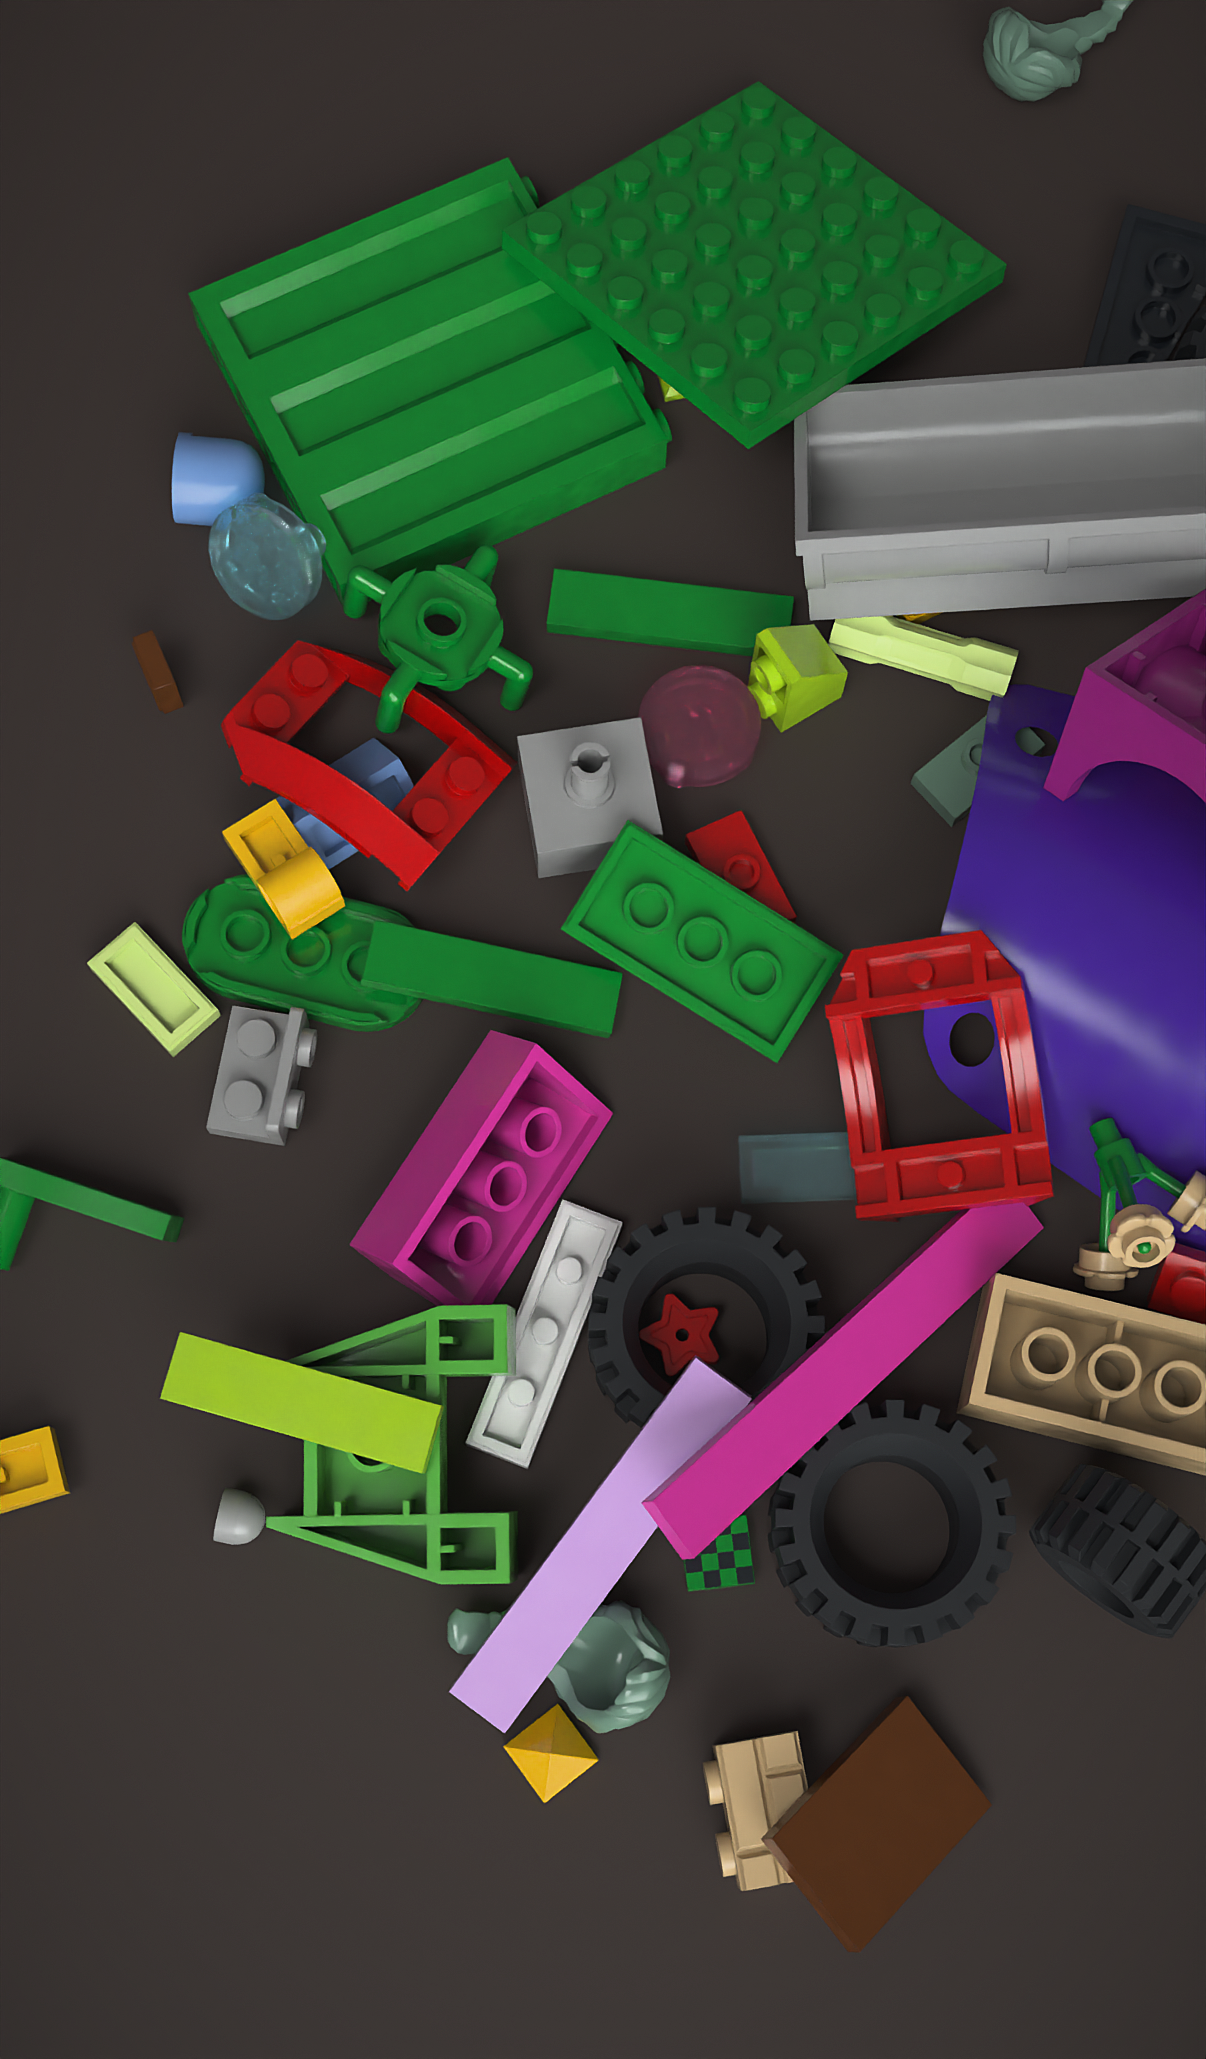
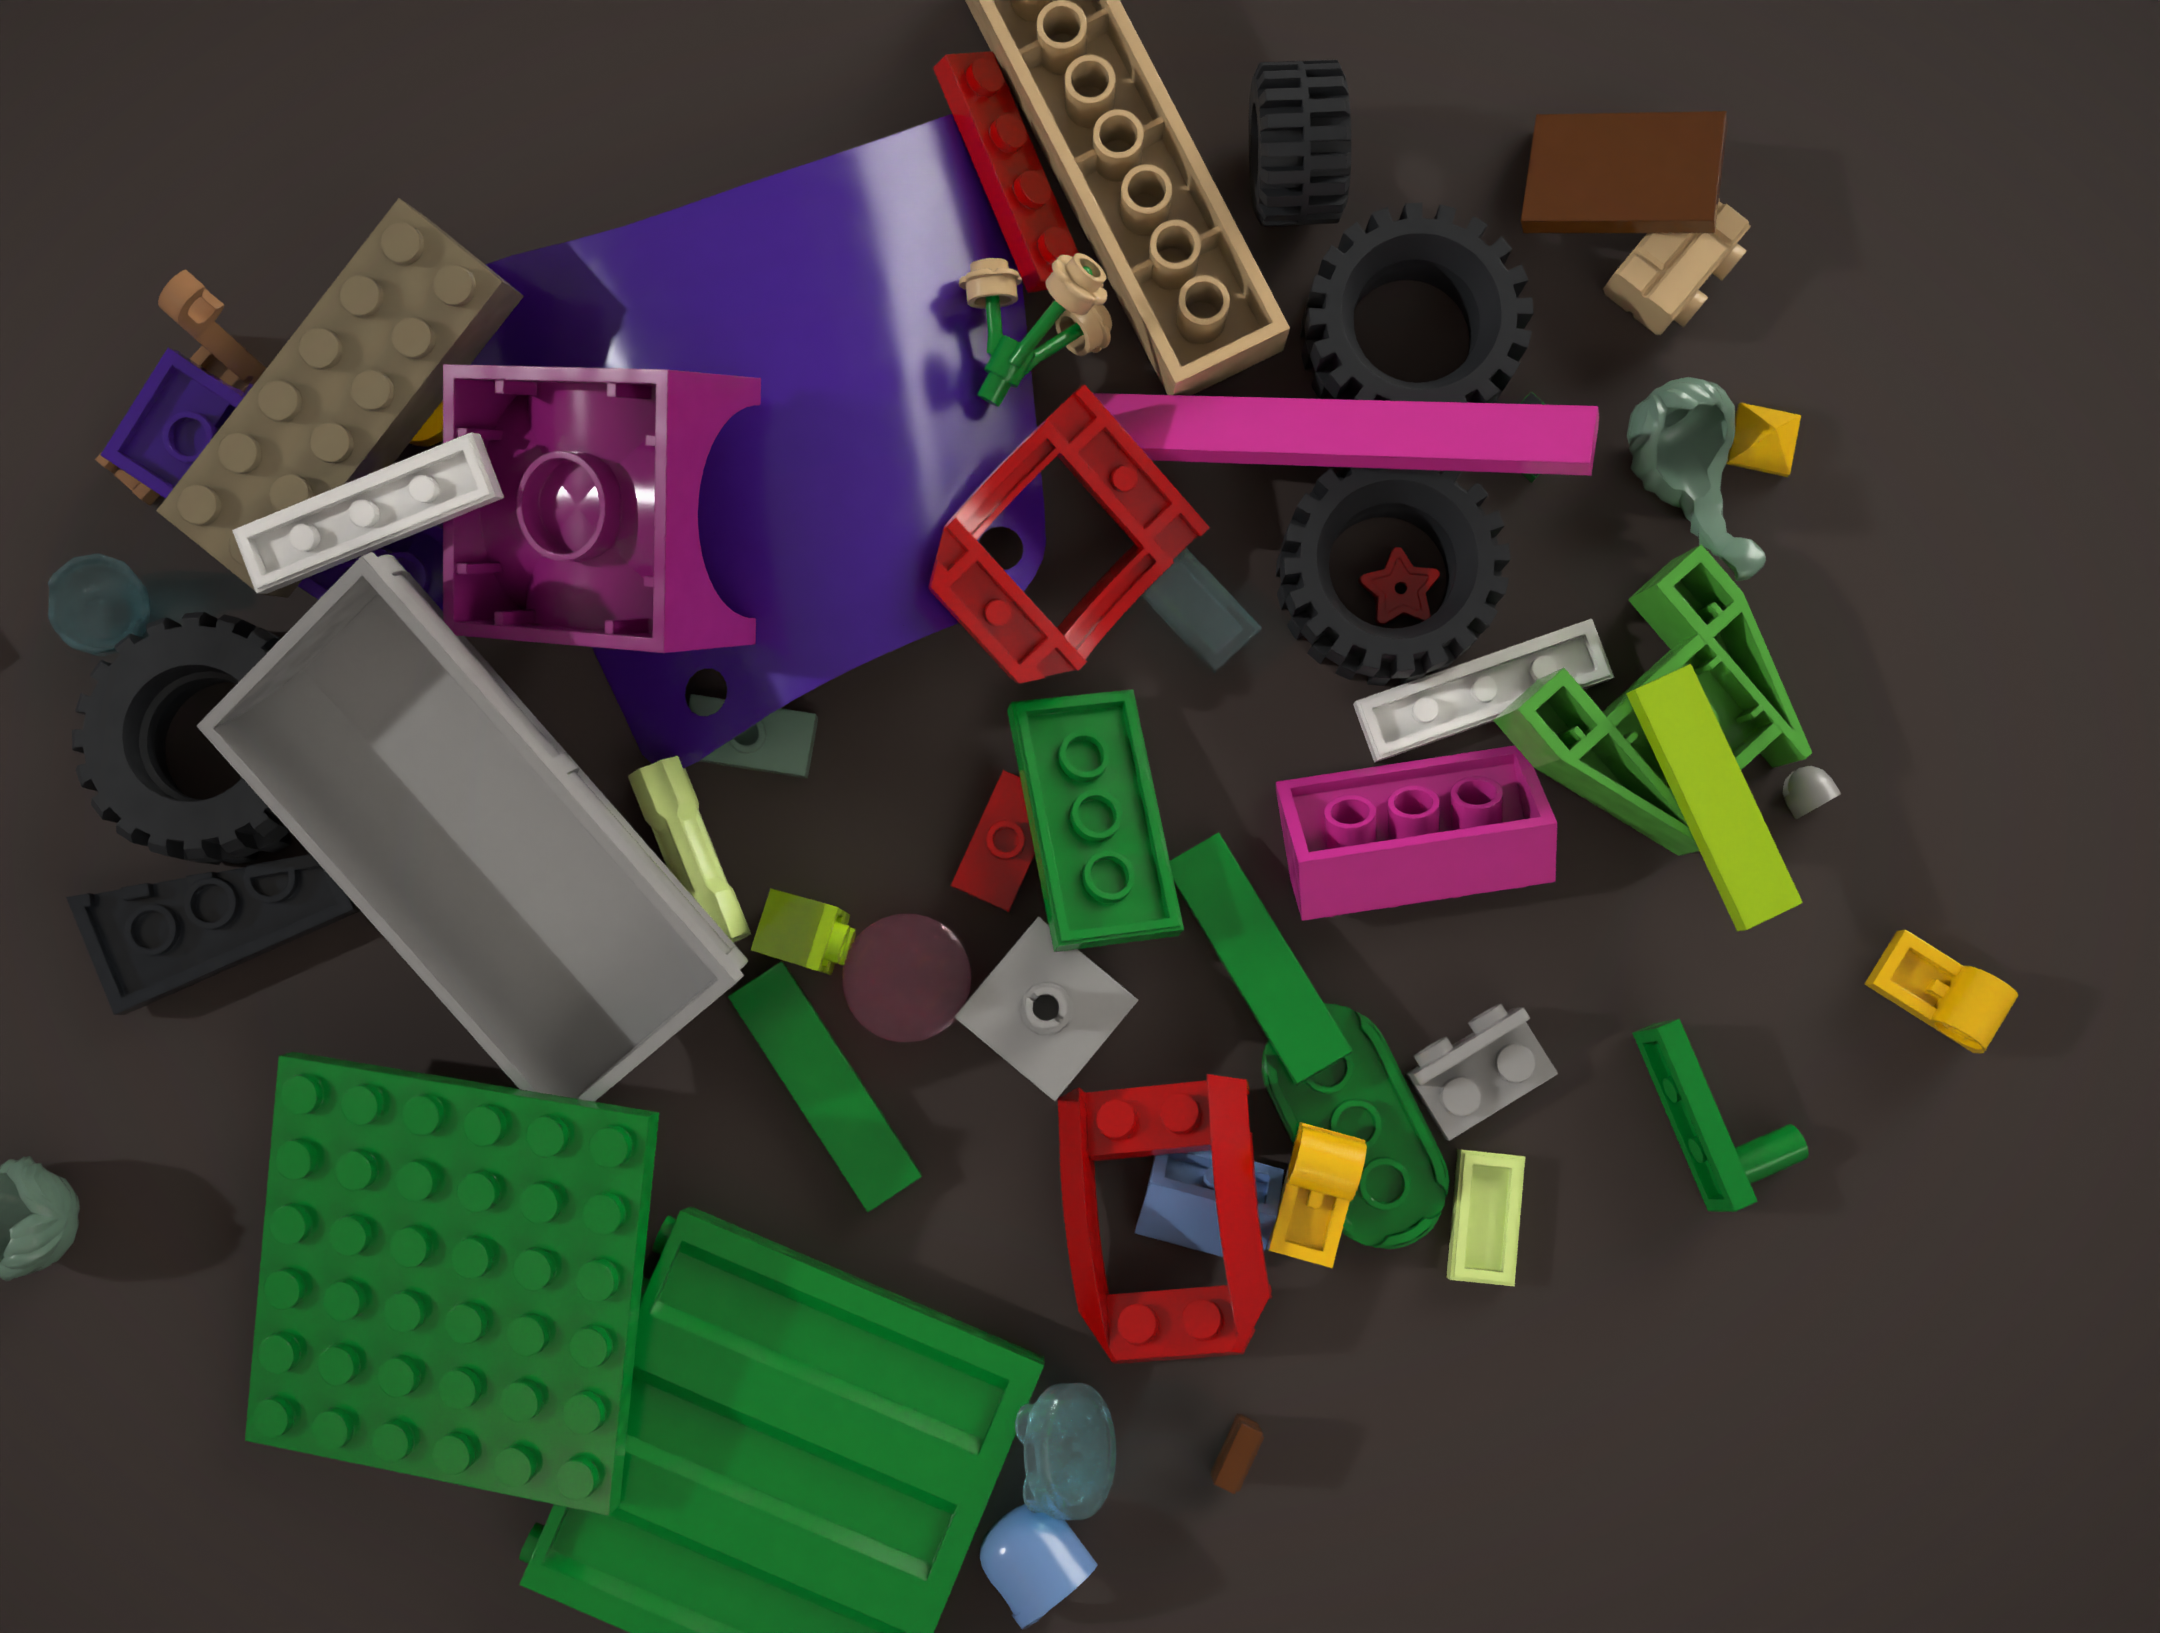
camera: 130 degrees left, 10 degrees up
(432, 658) = (1052, 1255): green plate -> none
(594, 1548) = (1612, 506): lavender tile -> none

